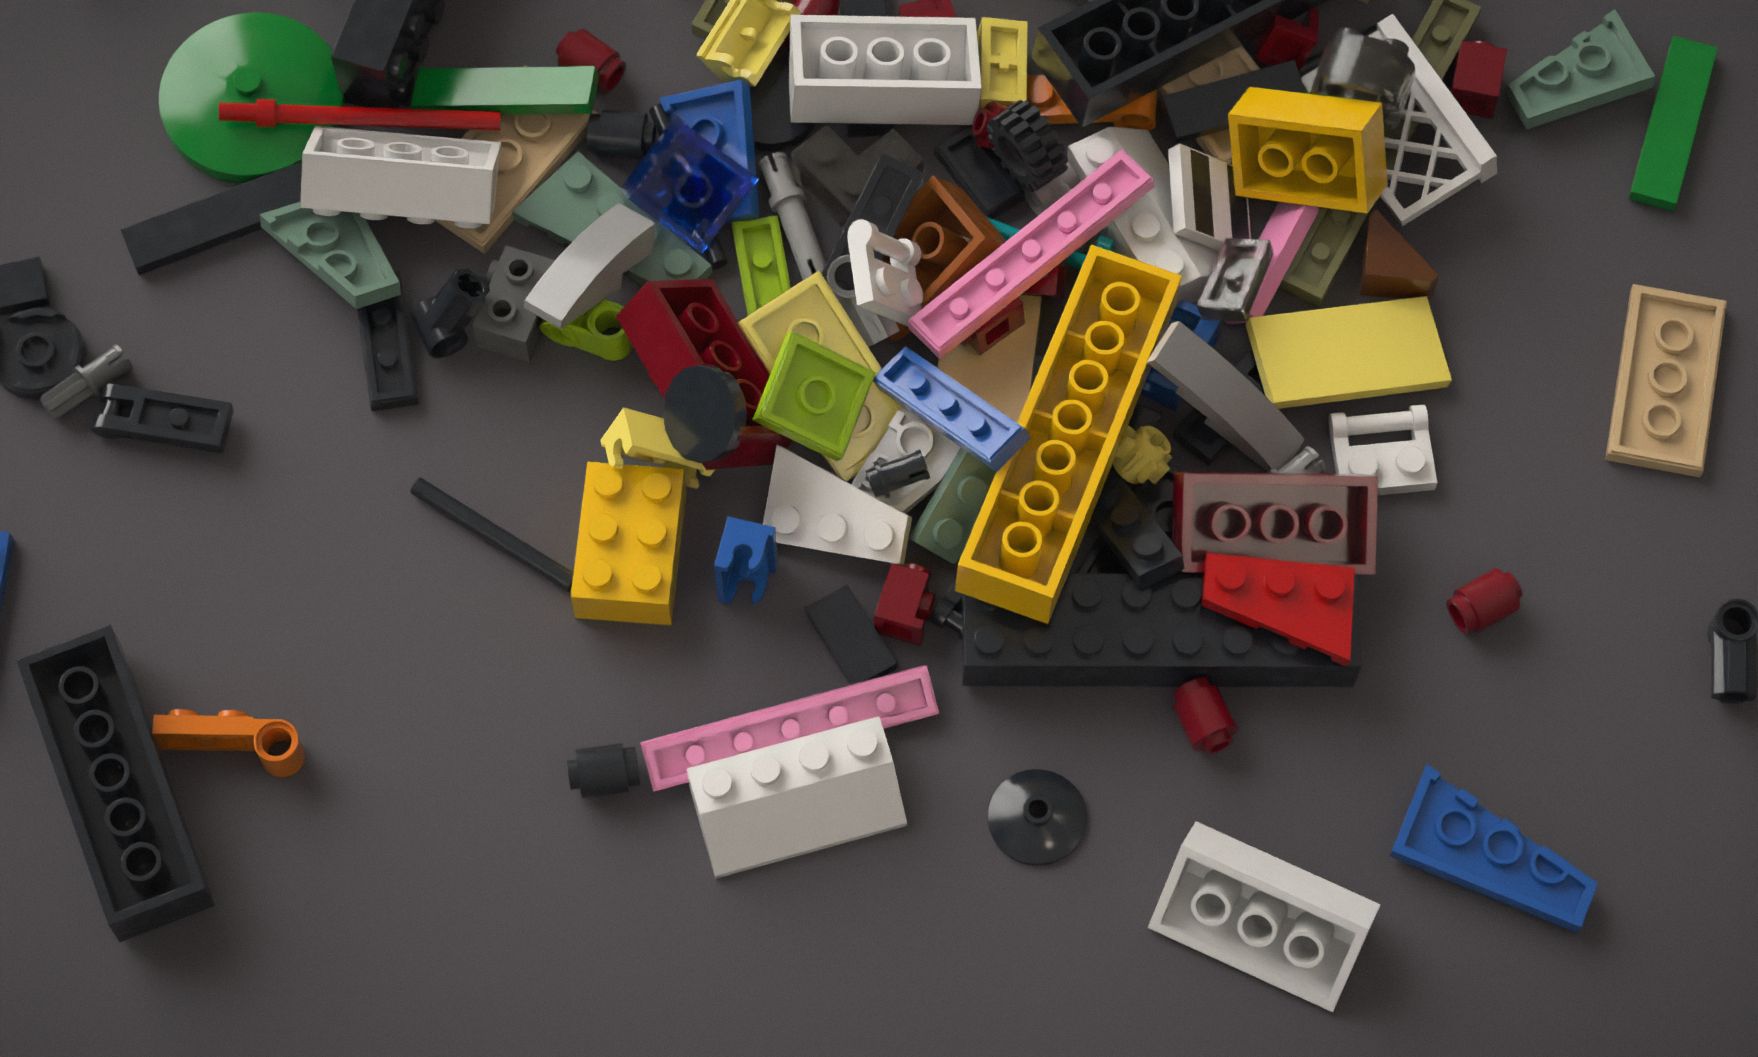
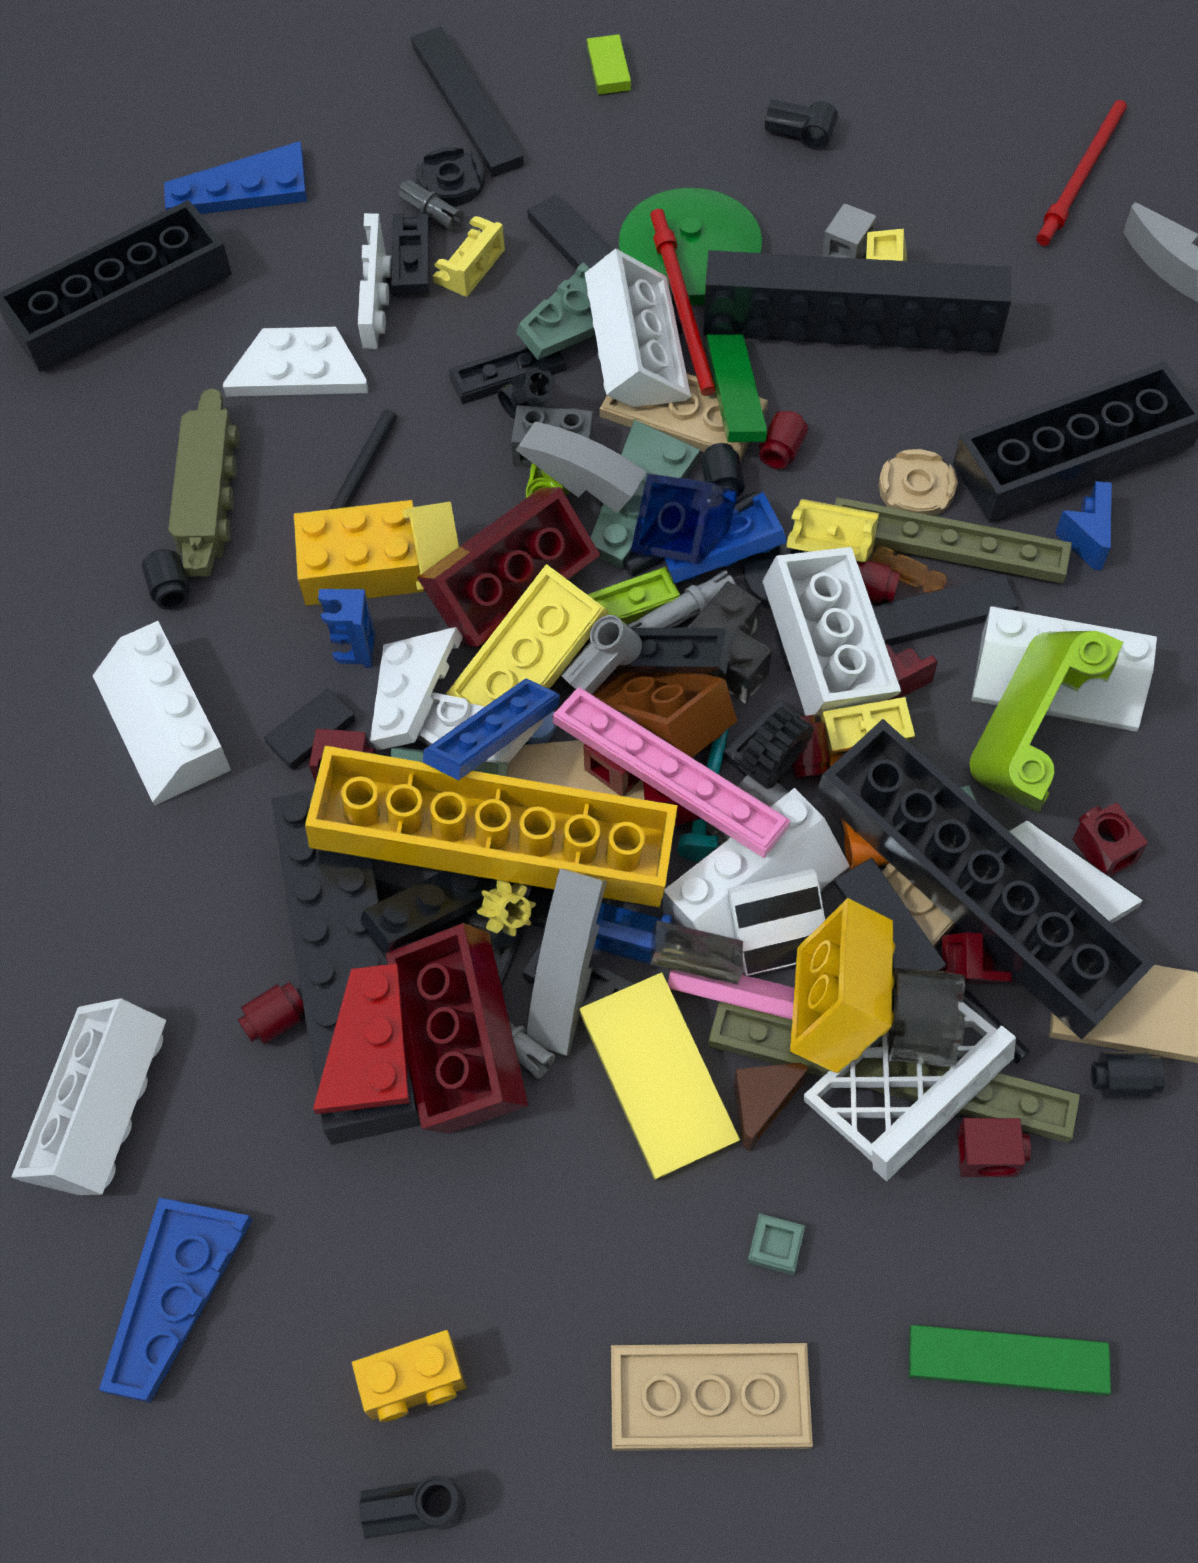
camera: 80 degrees right, 5 degrees down
(192, 348) = (472, 258): none -> light yellow hinge
(216, 465) = (373, 289): none -> white wing
(231, 732) = (161, 366): orange plate -> none
(301, 581) = (296, 364): none -> white wing
(471, 711) = (203, 484): none -> olive hinge
(704, 413) = (450, 551): black tile -> none
(814, 396) = (494, 634): lime plate -> none
(881, 286) = (604, 664): white plate -> none
(893, 697) = (223, 702): bright pink tile -> none
(897, 474) = (438, 709): black pin -> none
(1037, 839) = (178, 917): black dish -> none
(1399, 465) = (555, 1133): white plate -> none
(1484, 601) = (425, 1245): dark red brick -> none
(1532, 291) = (776, 1244): none -> sand green tile
(1584, 75) = (1035, 1261): sand green wing -> none
(1613, 633) = (409, 1376): none -> yellow brick

